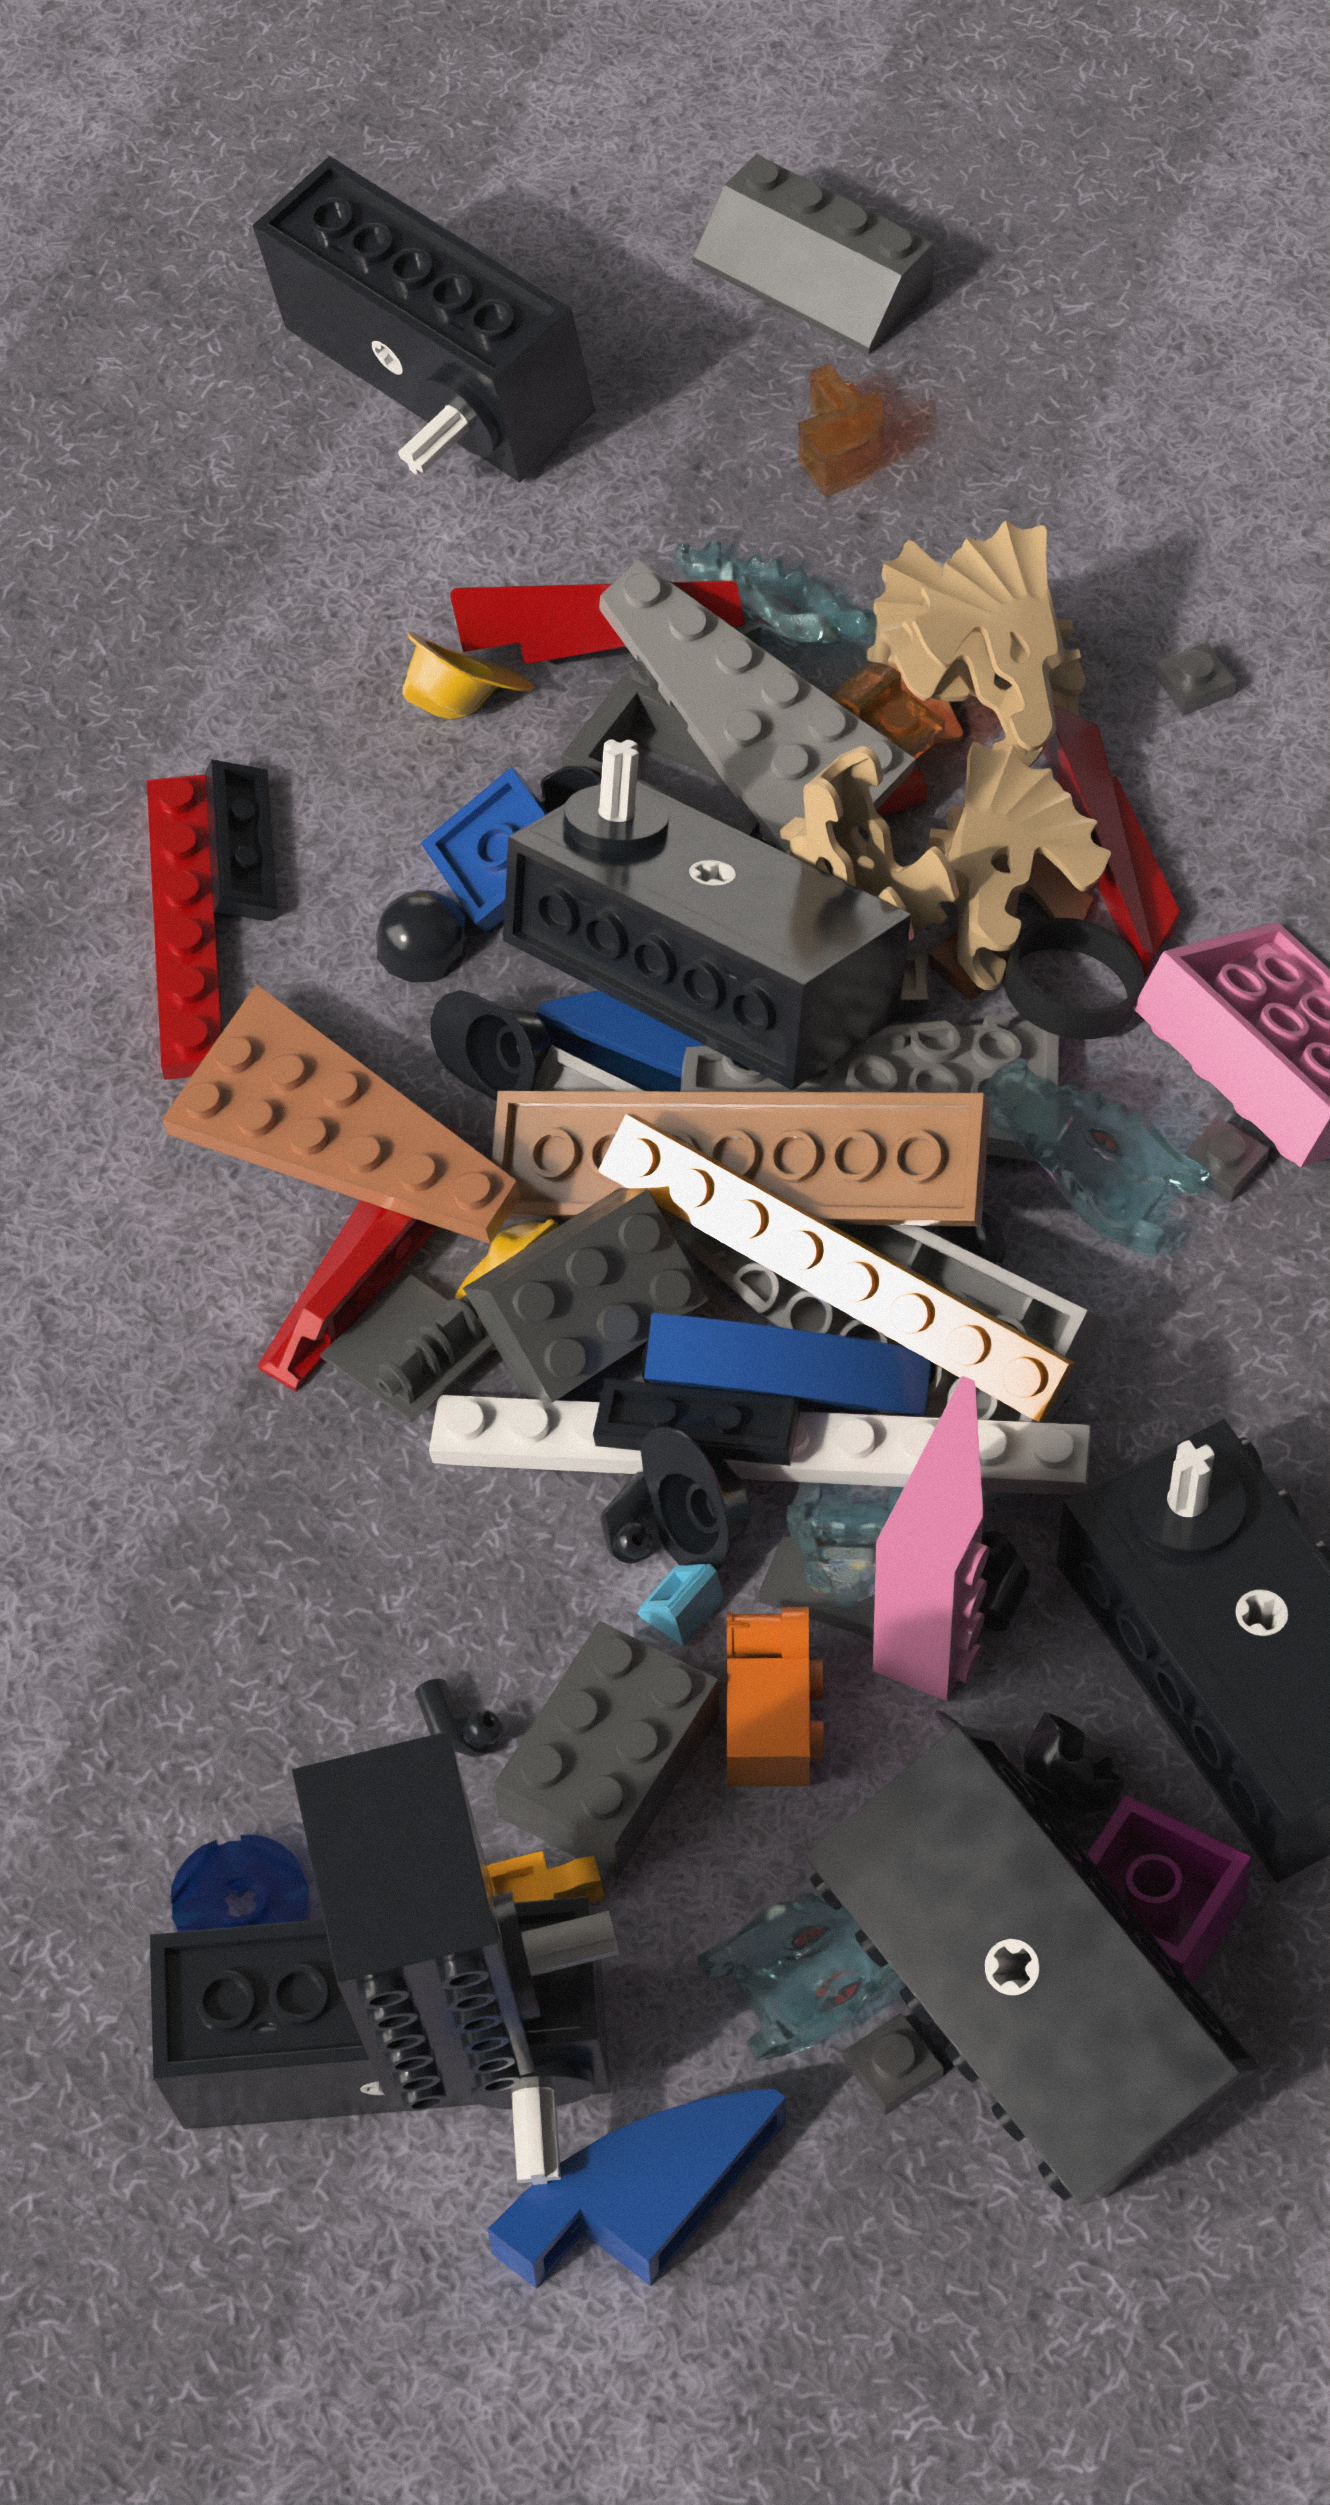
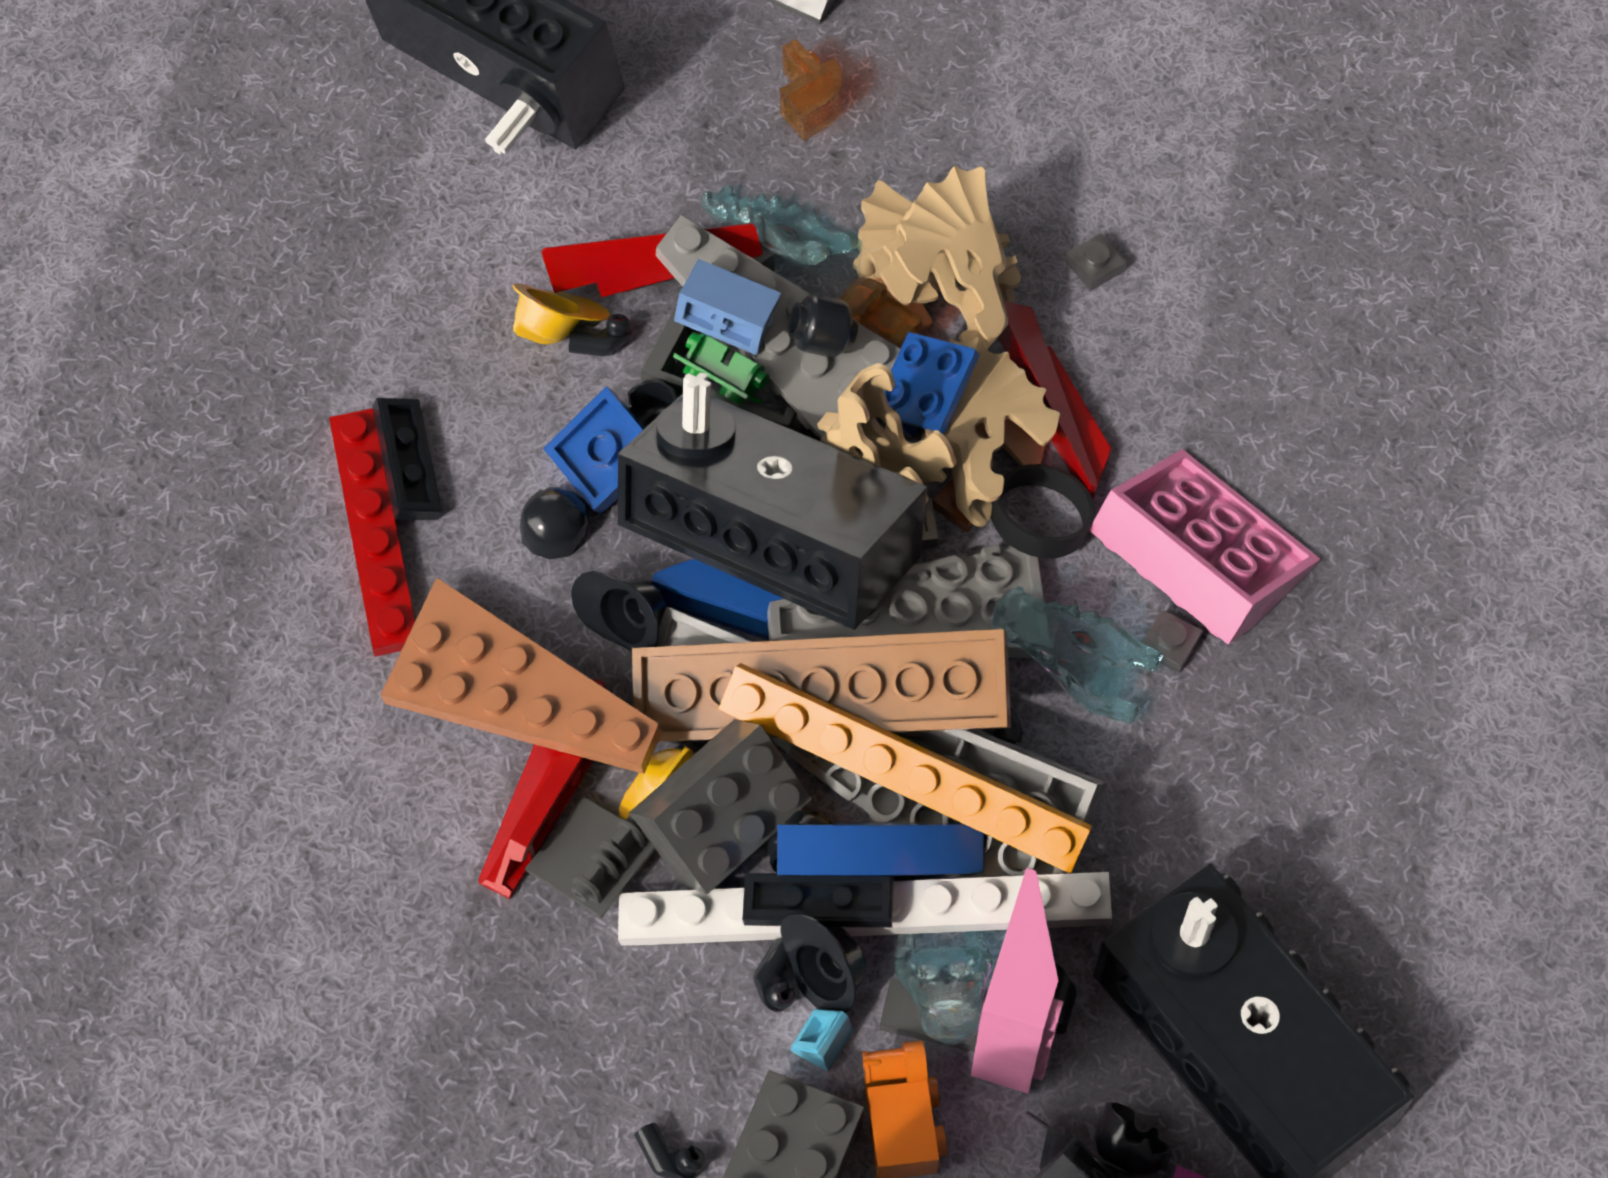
camera: 10 degrees left, 5 degrees up
(519, 722) = (606, 341): none -> black arm
(681, 675) = (726, 306): none -> medium blue hinge
(687, 771) = (737, 379): none -> green hinge
(805, 709) = (822, 325): none -> black head
(937, 795) = (929, 382): none -> blue bracket

